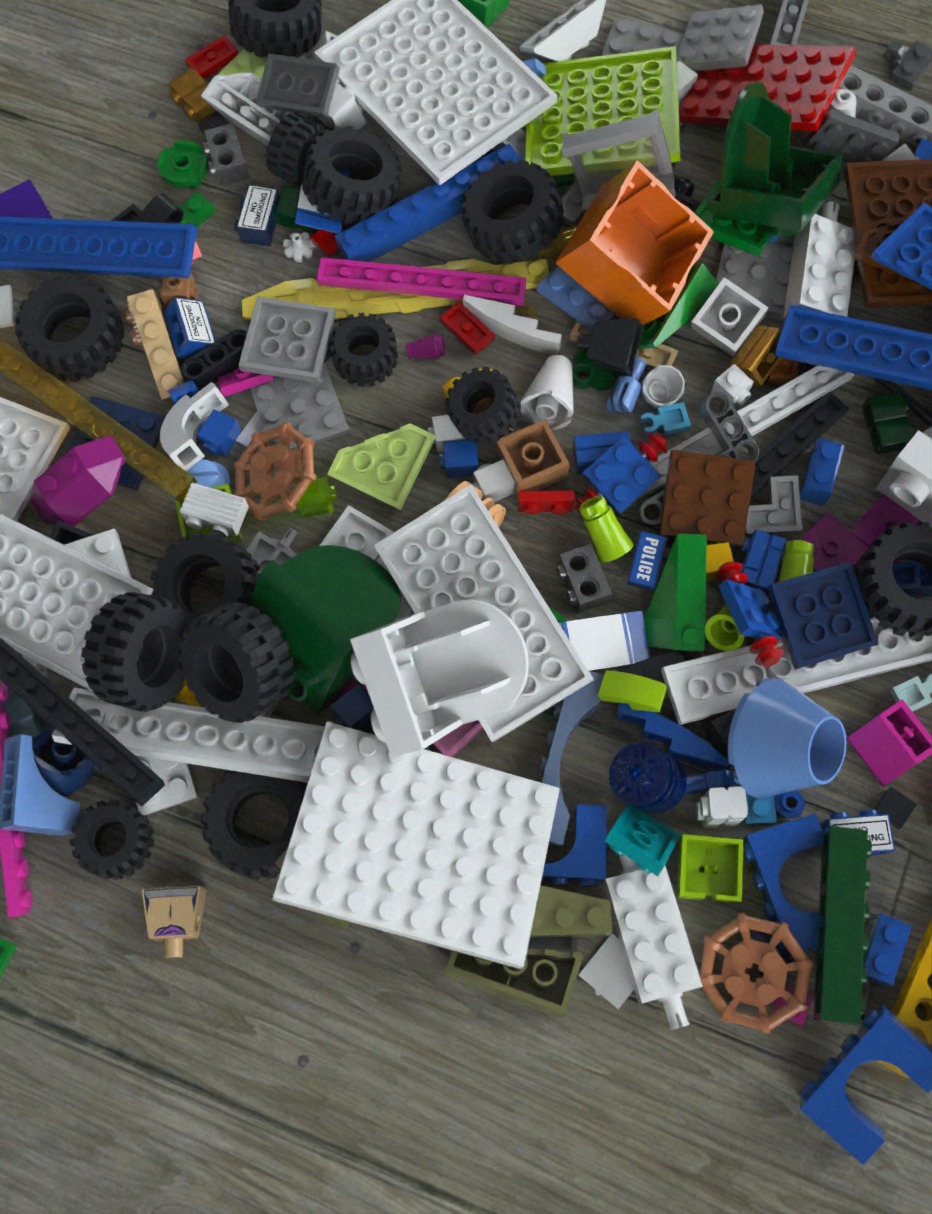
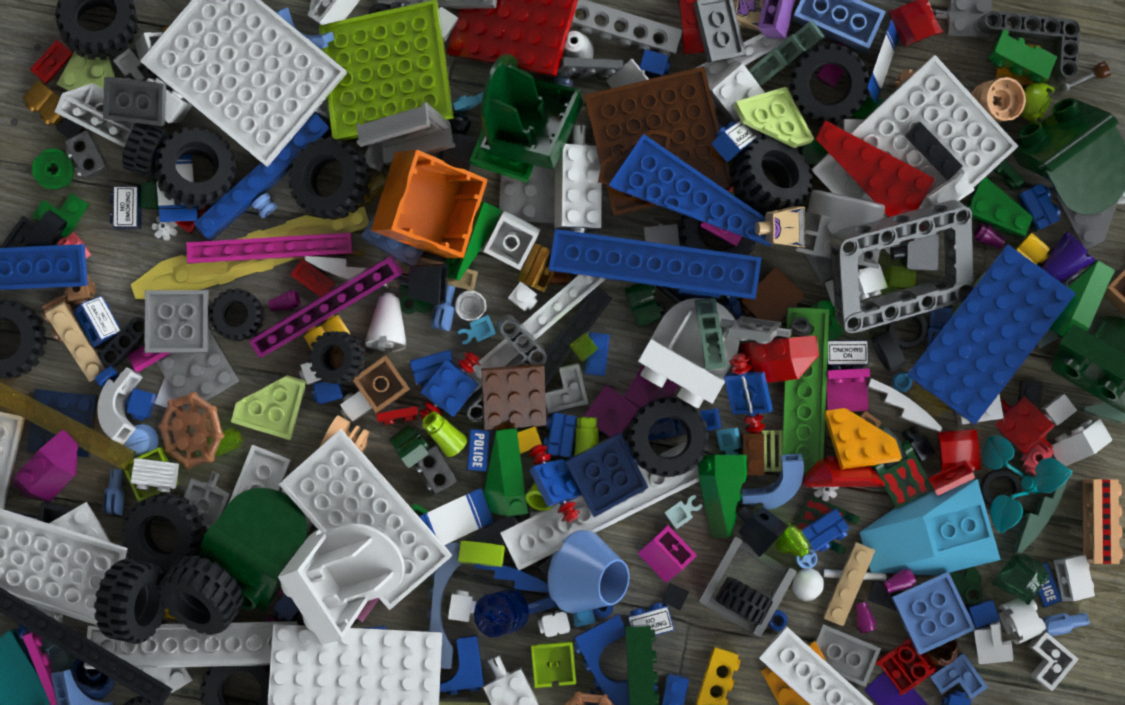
camera: 15 degrees left, 15 degrees up
(155, 535) = (114, 494): none -> medium blue arm
(425, 238) = (264, 205): none -> light blue wheel
(480, 349) = (326, 306): none -> magenta brick
(556, 537) = (409, 445): none -> dark green brick
(590, 763) = (461, 606): none -> white brick
(642, 839) = (504, 657): teal plate -> none
(695, 167) = (466, 103): none -> medium azure plate
(807, 452) = (583, 347): none -> clear neon green panel

